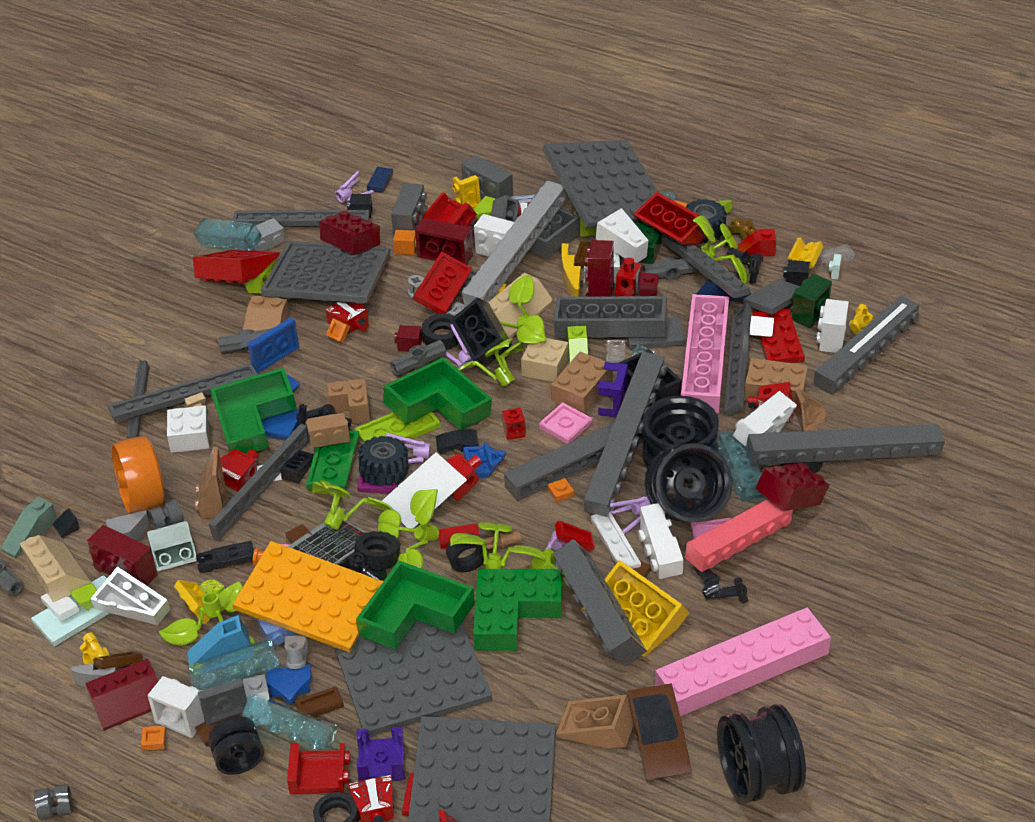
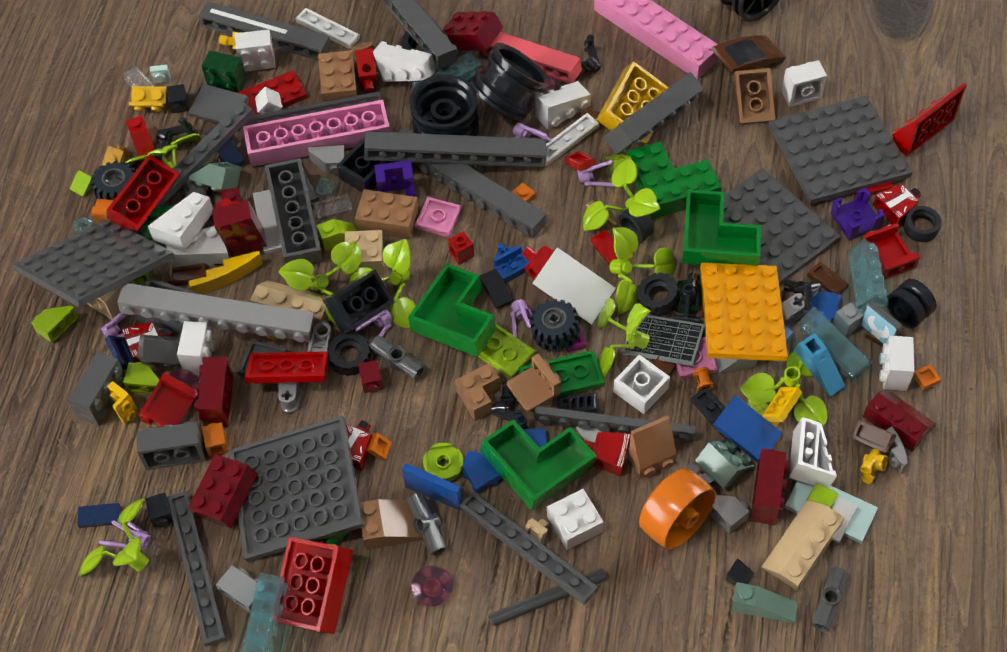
camera: 110 degrees left, 15 degrees up
(193, 334) = (429, 577): none -> clear pink dish
(193, 565) = (746, 428): none -> blue tile
(285, 505) = (641, 384): none -> white brick
(301, 373) = (450, 454): none -> lime plate
(304, 665) = (807, 289): none -> black pin
(327, 186) = (131, 552): none -> lime plant
(587, 767) = (804, 83): none -> white brick
(674, 355) = (327, 157): none -> light grey slope
(677, 277) = (218, 176): none -> sand green slope
(858, 395) = (323, 25): none -> white tile

